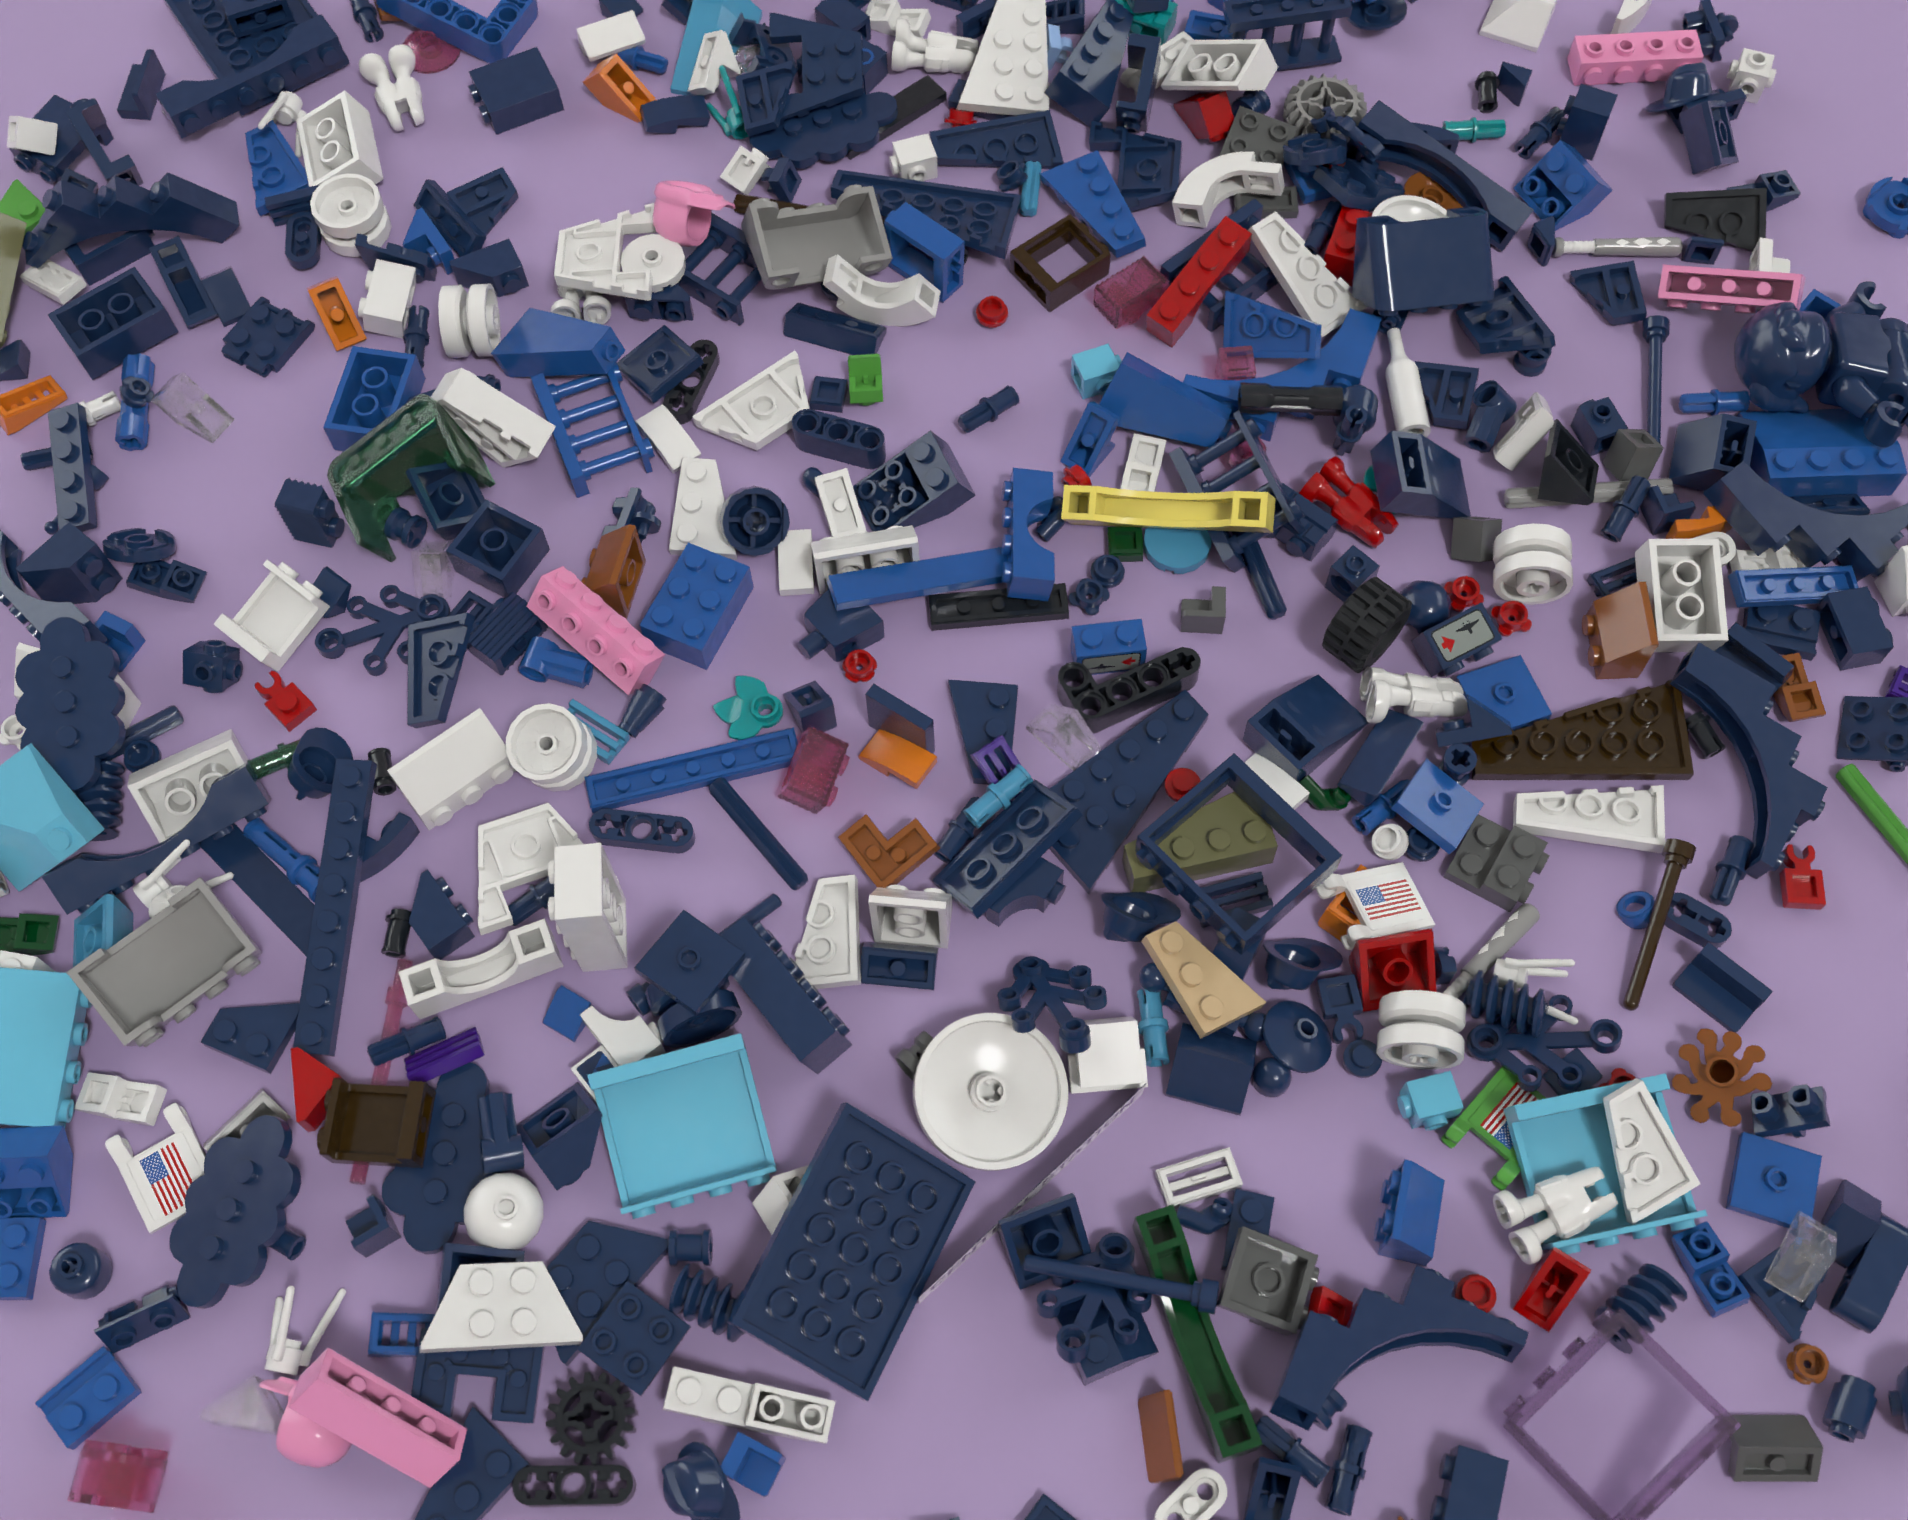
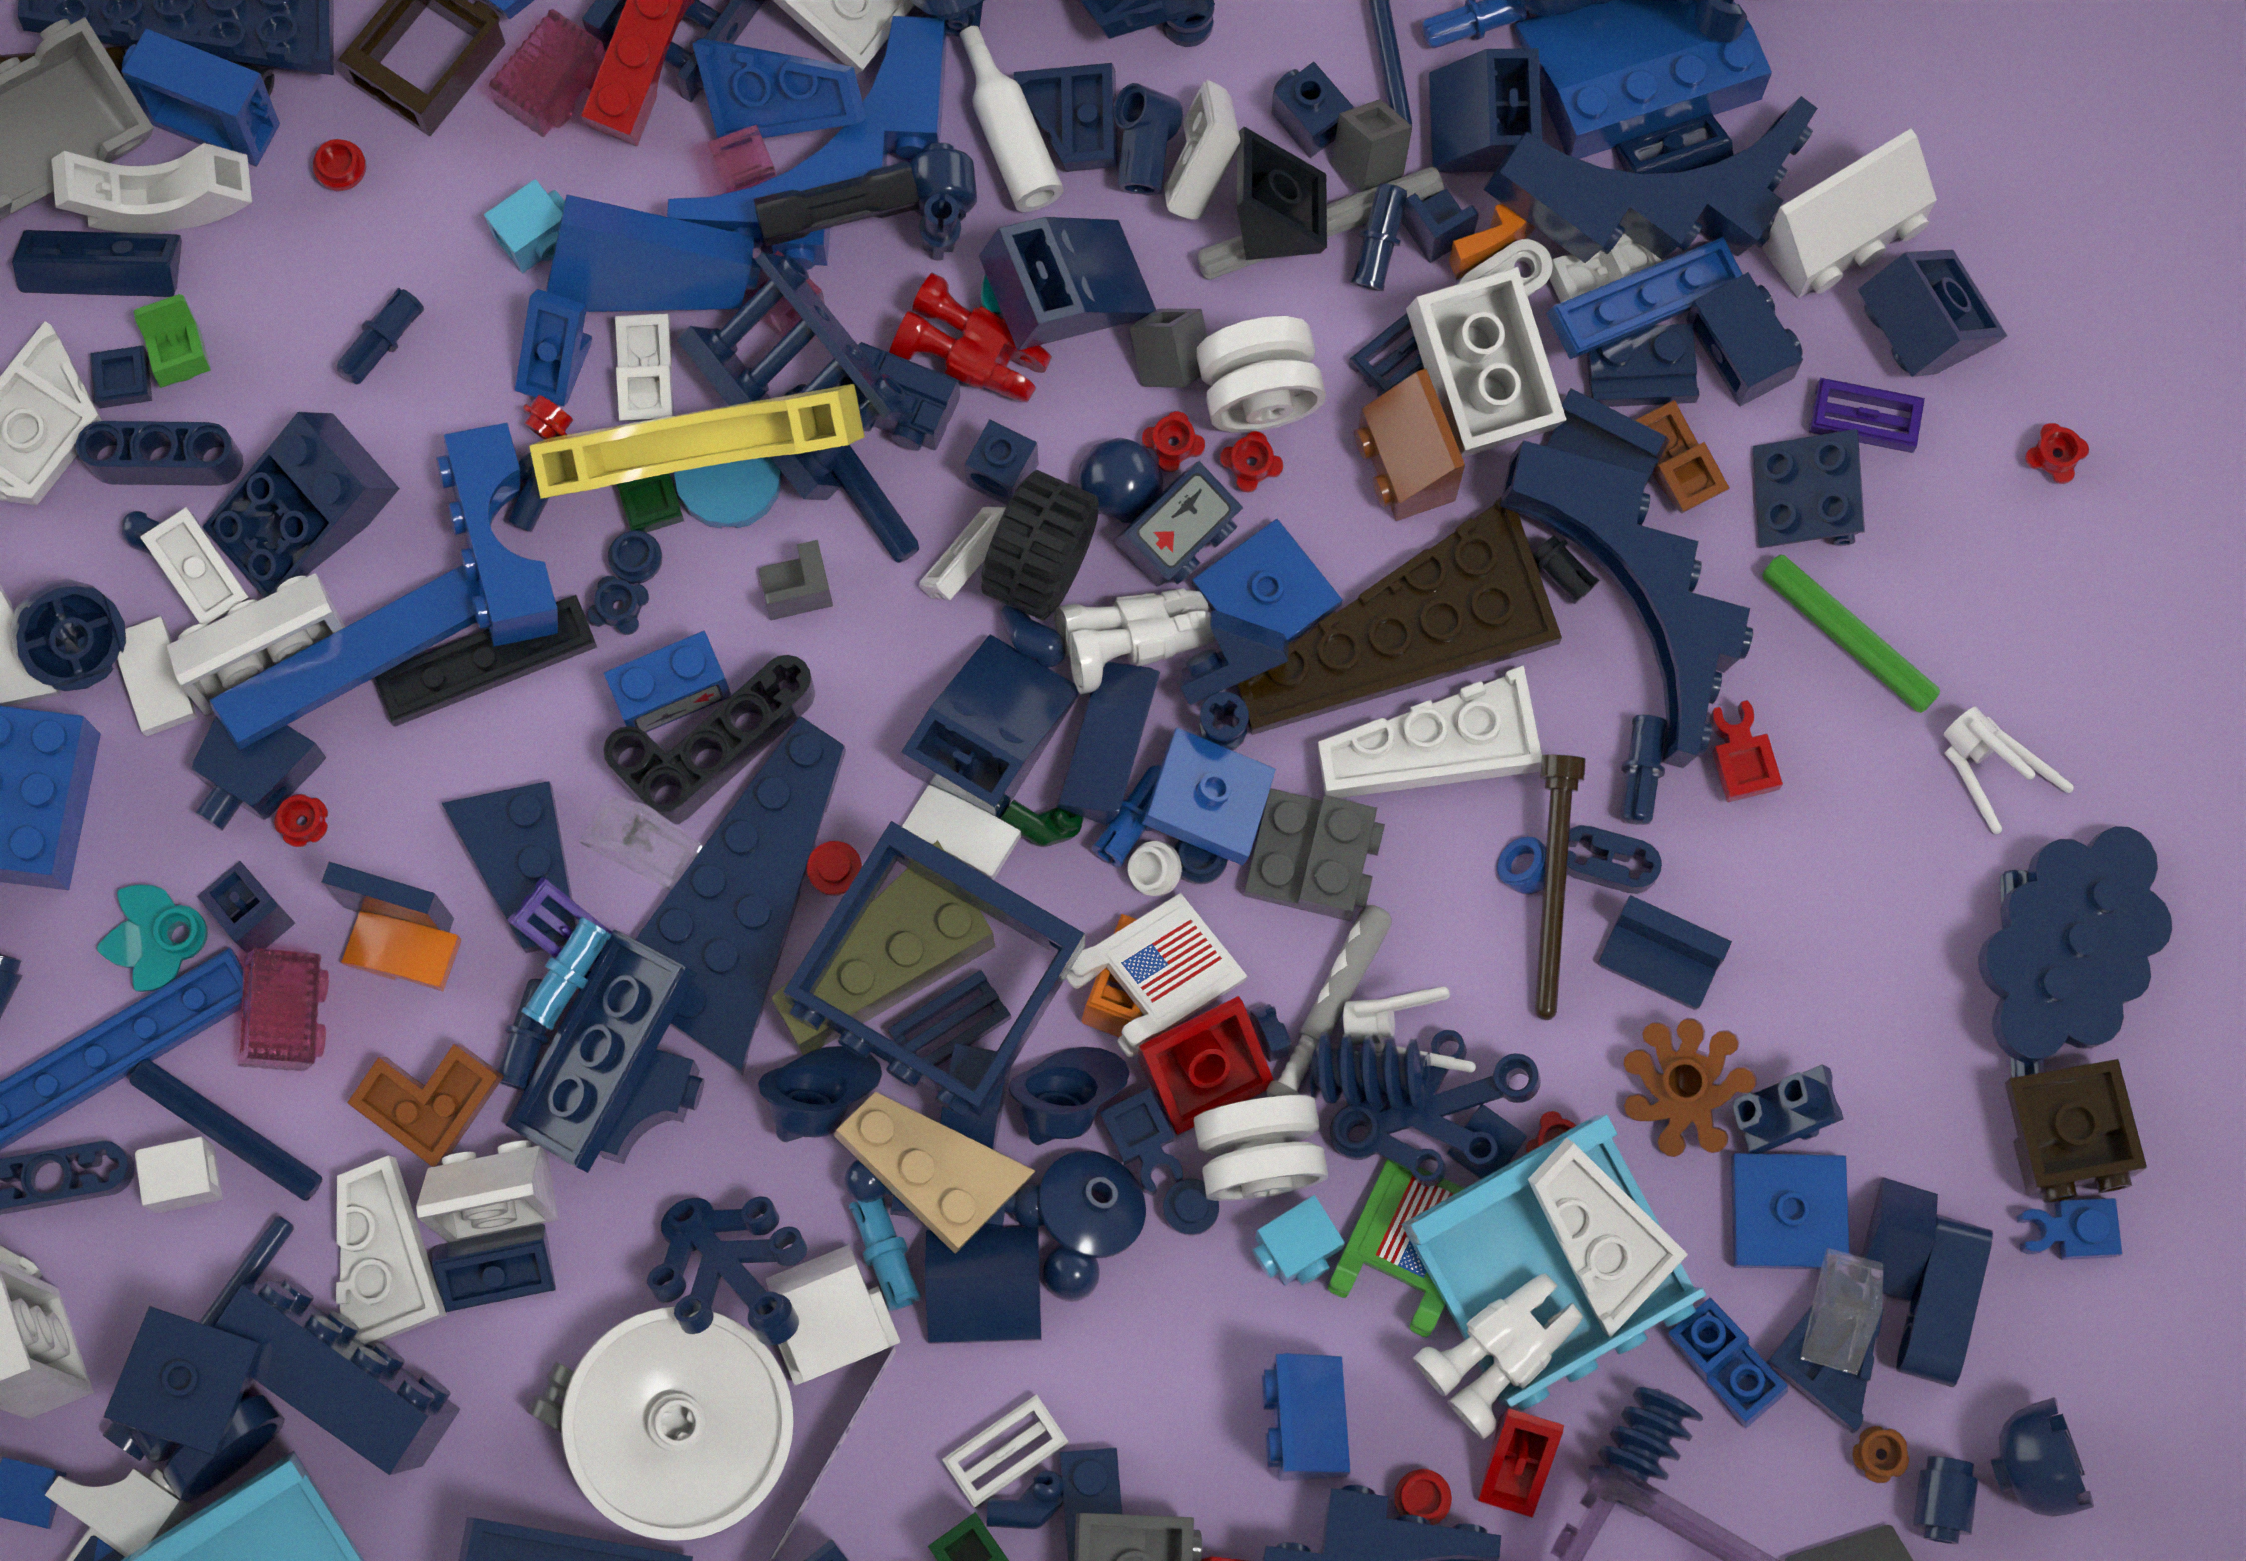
camera: 20 degrees left, 10 degrees up
(721, 850) = (178, 1175): none -> white panel
(1311, 624) = (962, 556): none -> white tile
(1346, 681) = (1033, 637): none -> dark blue arm

